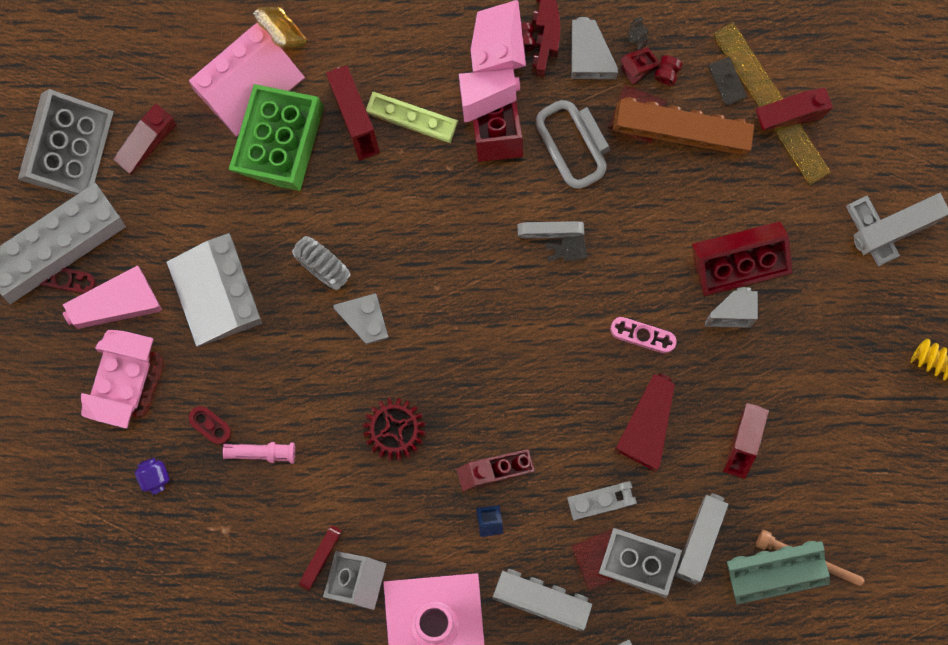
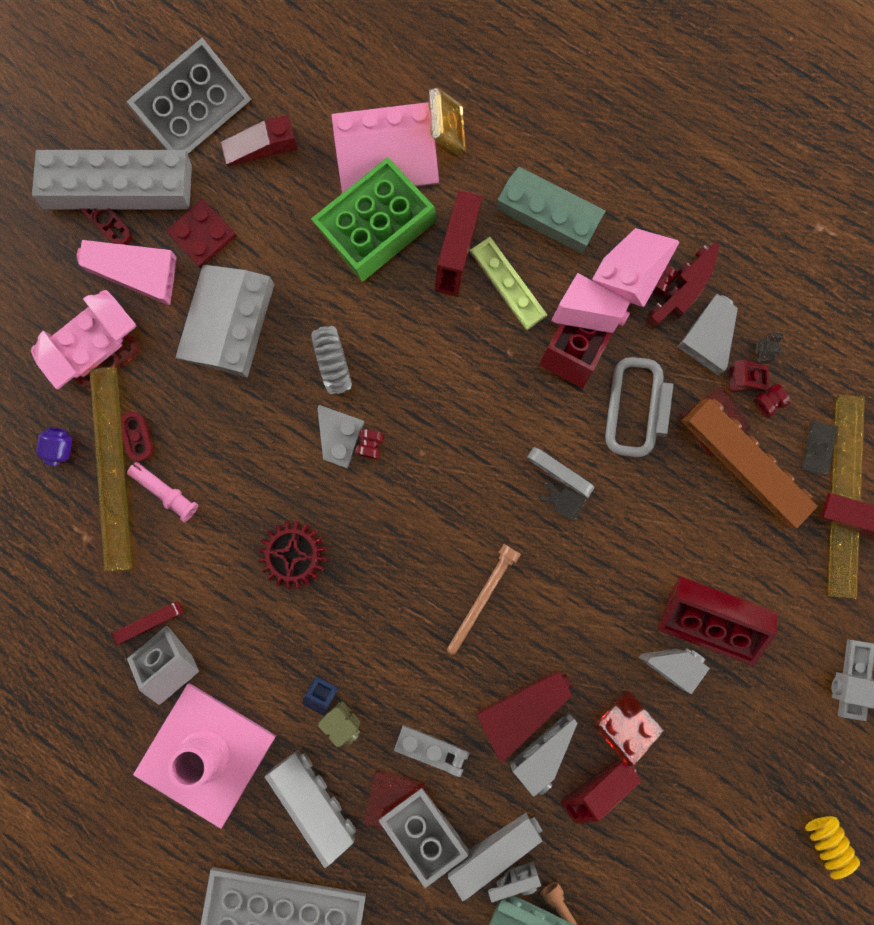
camera: 40 degrees right, 5 degrees up
(148, 238) = (201, 233): none -> dark red plate
(208, 462) = (110, 469): none -> clear yellow tile
(391, 304) = (369, 445): none -> dark red wheel
(404, 41) = (549, 209): none -> sand green slope
(494, 469) = (355, 655): dark red slope -> none
(521, 525) = (340, 725): none -> olive brick
(556, 319) = (506, 557): none -> nougat piece
(628, 325) = (593, 638): bright pink beam -> none
(686, 446) = (542, 758): none -> light grey slope
(733, 380) = (628, 728): none -> clear red plate
(734, 542) = (516, 880): none -> light grey wing

